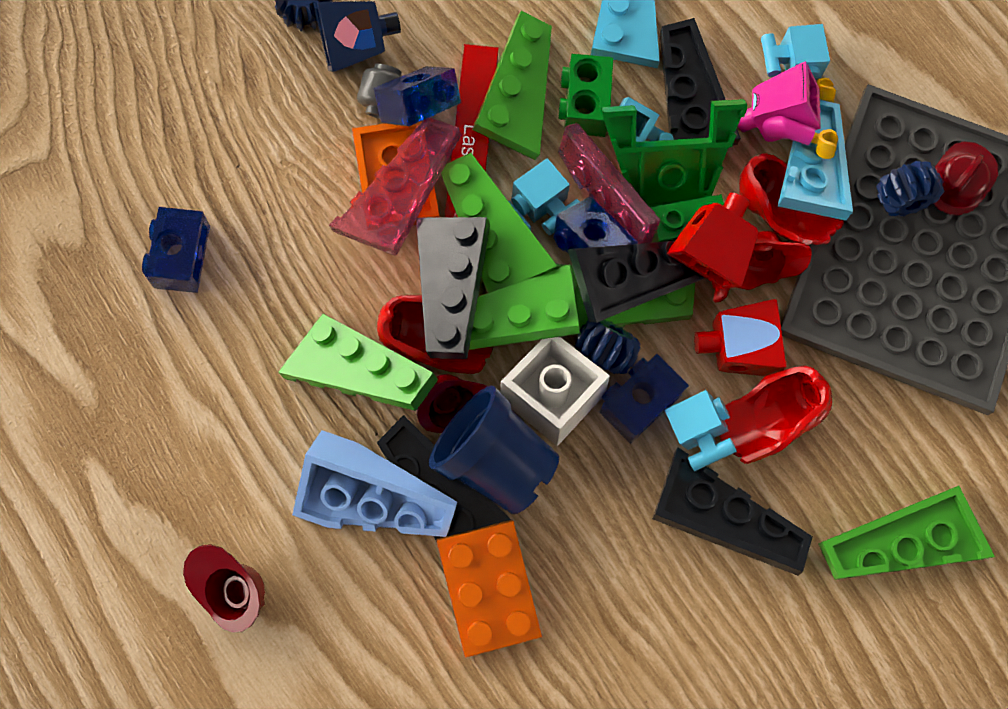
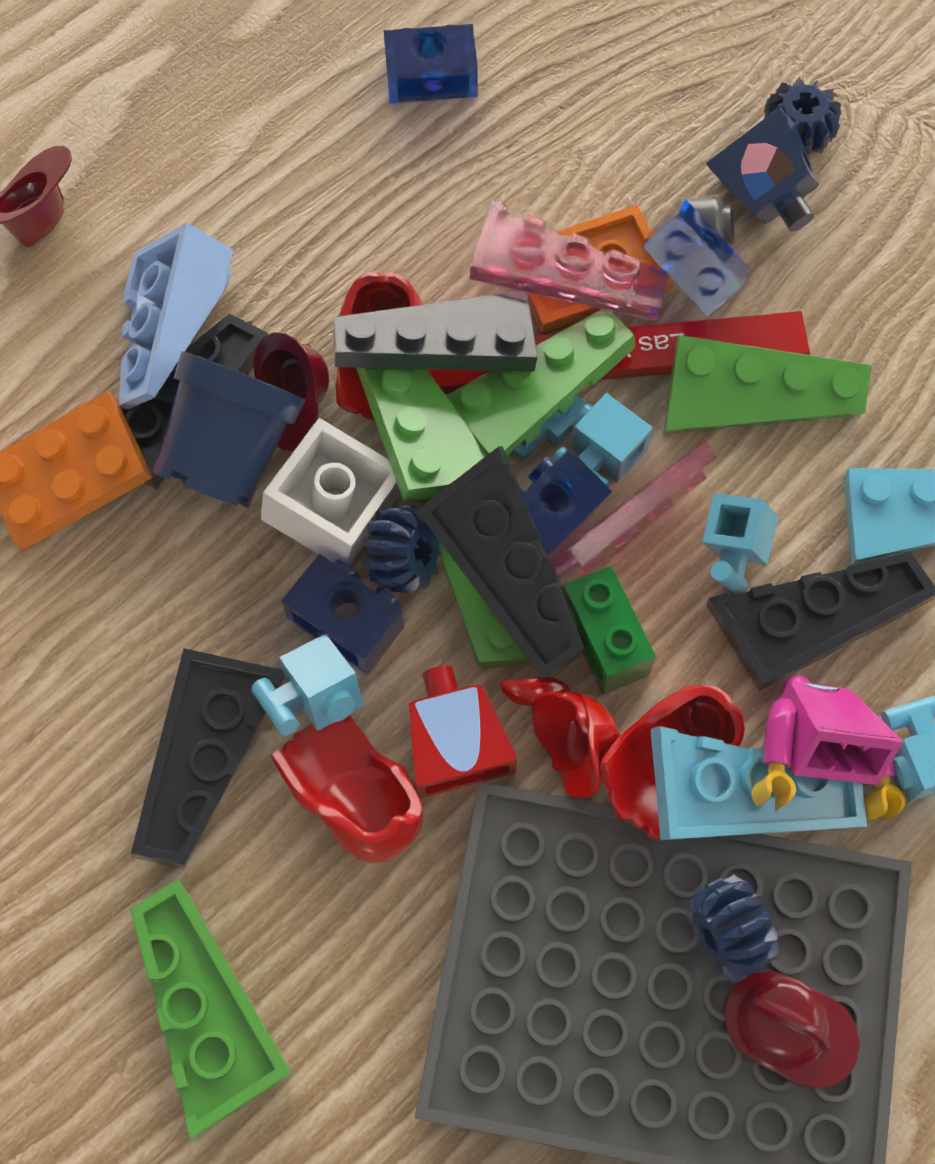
camera: 85 degrees right, 5 degrees down
(357, 365) = (317, 268): wing -> none
(586, 94) = (774, 480): green brick -> none
(678, 168) = (677, 585): green wing -> none
(718, 242) = (571, 649): red torso -> none

